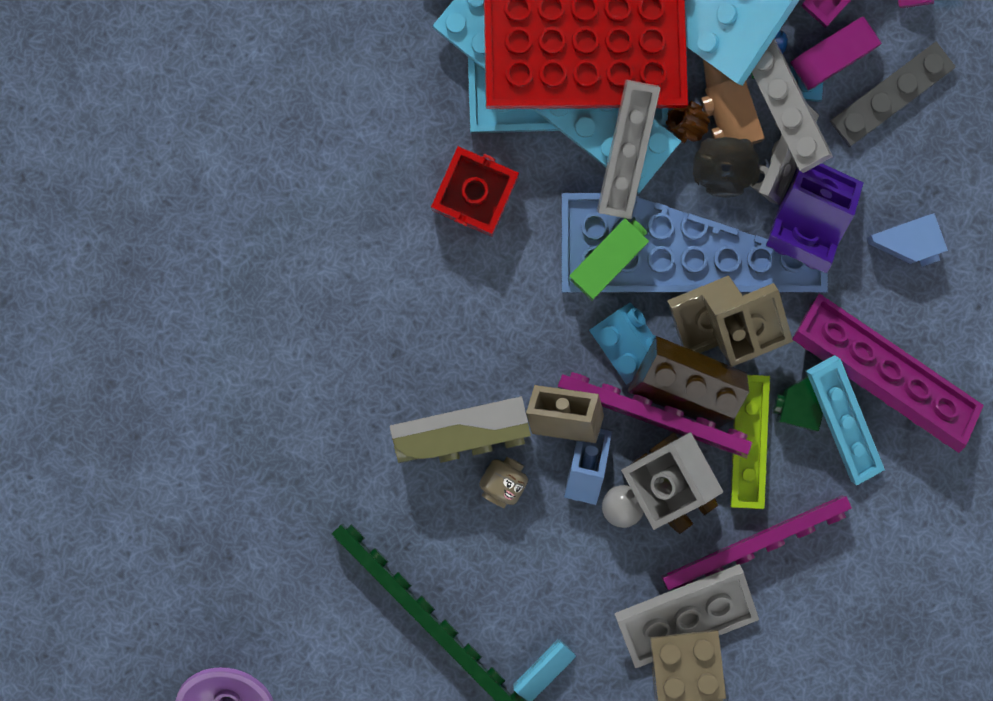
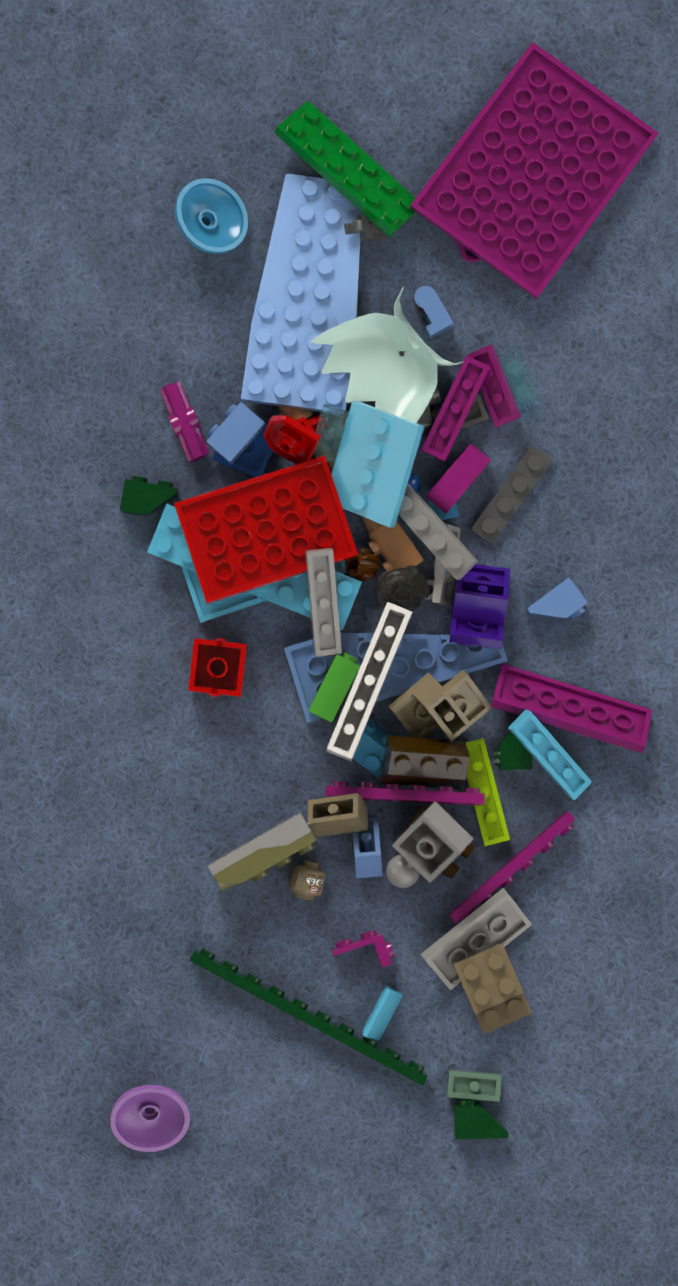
camera: 20 degrees left, 0 degrees up
(570, 595) = (383, 949): none -> magenta bracket
(654, 263) = (369, 681): none -> white brick

